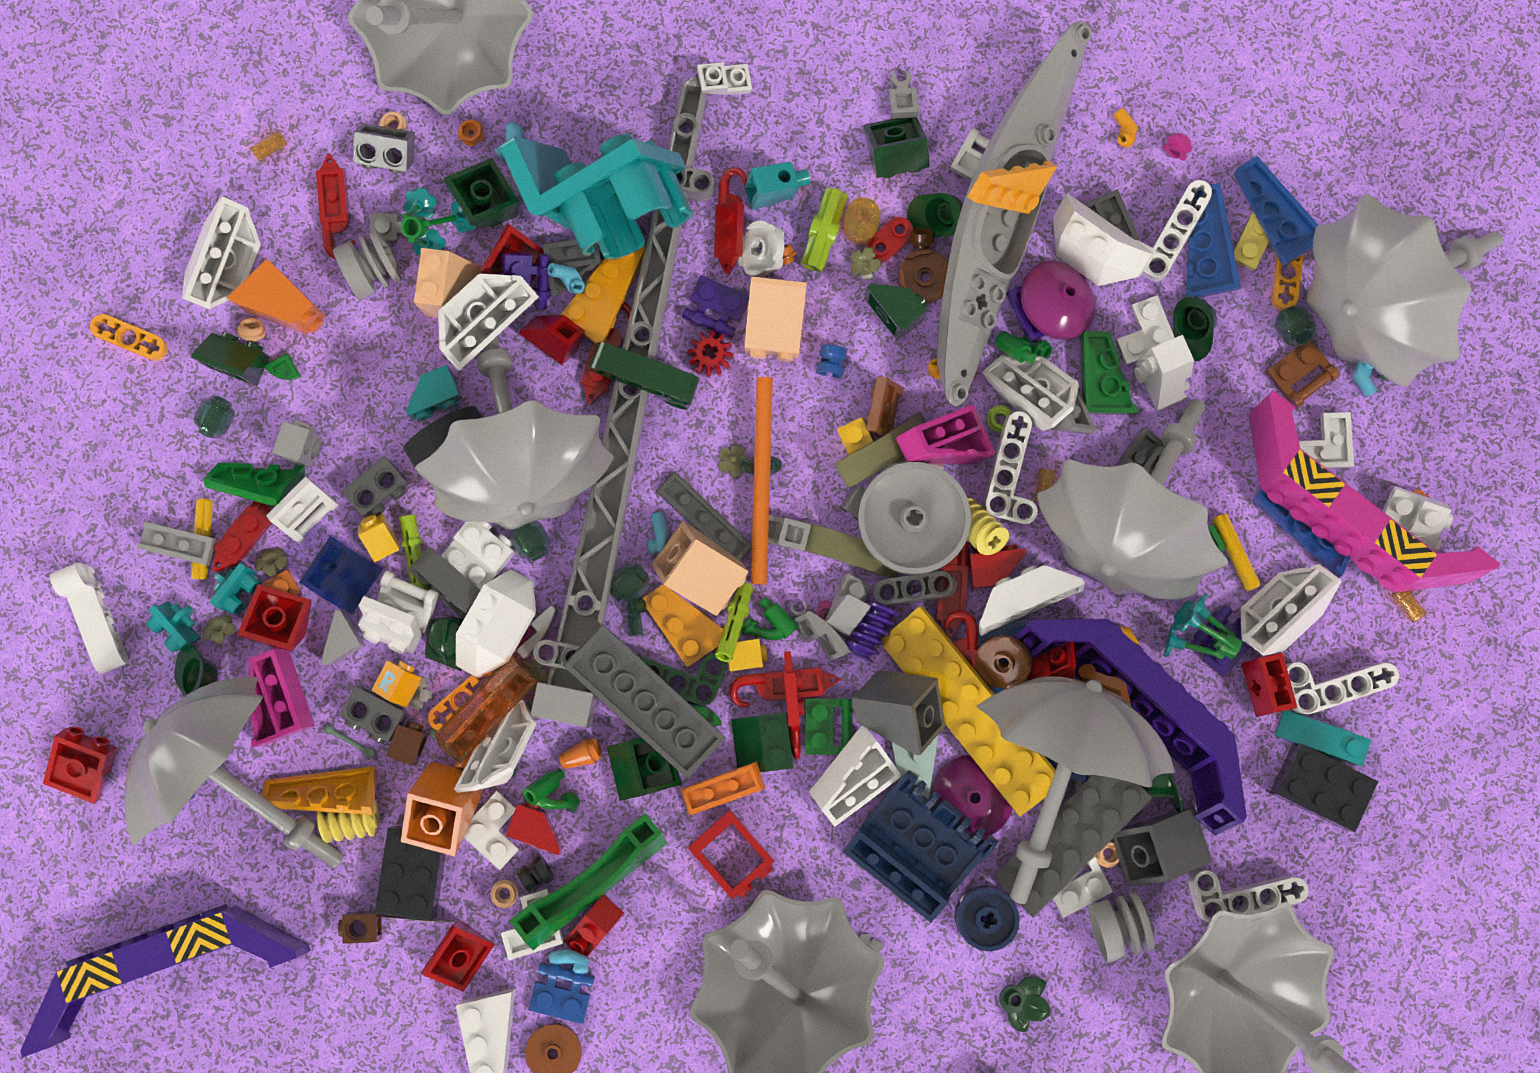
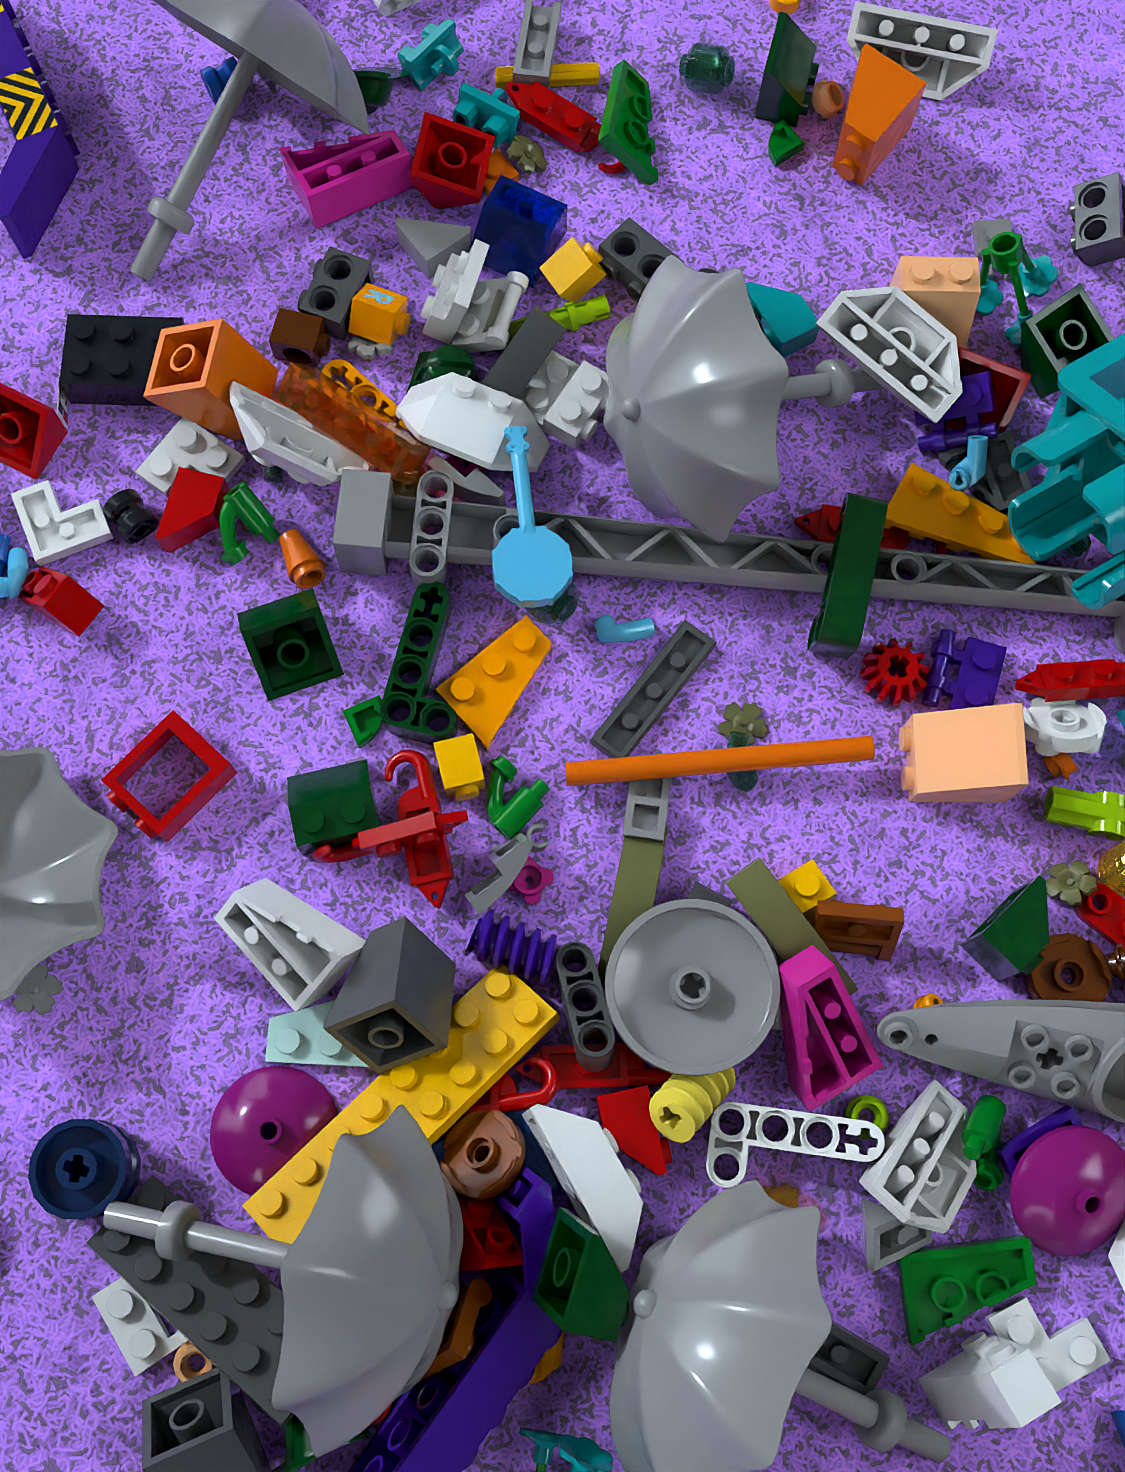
camera: 80 degrees right, 10 degrees down
(218, 628) = (432, 103): olive plant -> none
(269, 145) = (1074, 93): clear yellow pin -> none
(297, 443) = (685, 158): light grey brick -> none
(298, 506) = (602, 167): white plate -> none
(325, 792) = (228, 247): light orange wing -> none
(332, 202) = (1010, 174): red plate -> none
(348, 825) = (190, 277): light yellow piece -> none
(367, 264) = (940, 212): light grey wheel -> none
(368, 752) = (286, 297): sand green hinge -> none
(372, 923) = (43, 295): reddish brown brick -> none
(498, 900) = (96, 475): light nougat plate -> none
(531, 541) = (592, 460): clear green head -> none
(554, 336) = (882, 461): red slope -> none
(555, 910) = (162, 630): green arch -> none
(612, 590) = (529, 562): none -> medium azure piece
(634, 611) = (499, 611): clear green arm -> none
(644, 701) = (377, 624): dark grey plate -> none
(699, 569) = (576, 687): light nougat slope -> none
(723, 788) = (263, 754): orange tile -> none
(737, 610) = (521, 747): lime pin -> none
(820, 725) = (365, 888): green plate -> none
(831, 360) = (914, 847): blue wheel -> none
(848, 604) = (549, 907): light grey slope -> none
(918, 846) = (187, 1049): dark blue slope -> none
(1090, 607) = (581, 1282): none -> dark green slope
(1126, 925) = (74, 1395): light grey wheel -> none
(1196, 322) = (1076, 1432): dark green piece -> none

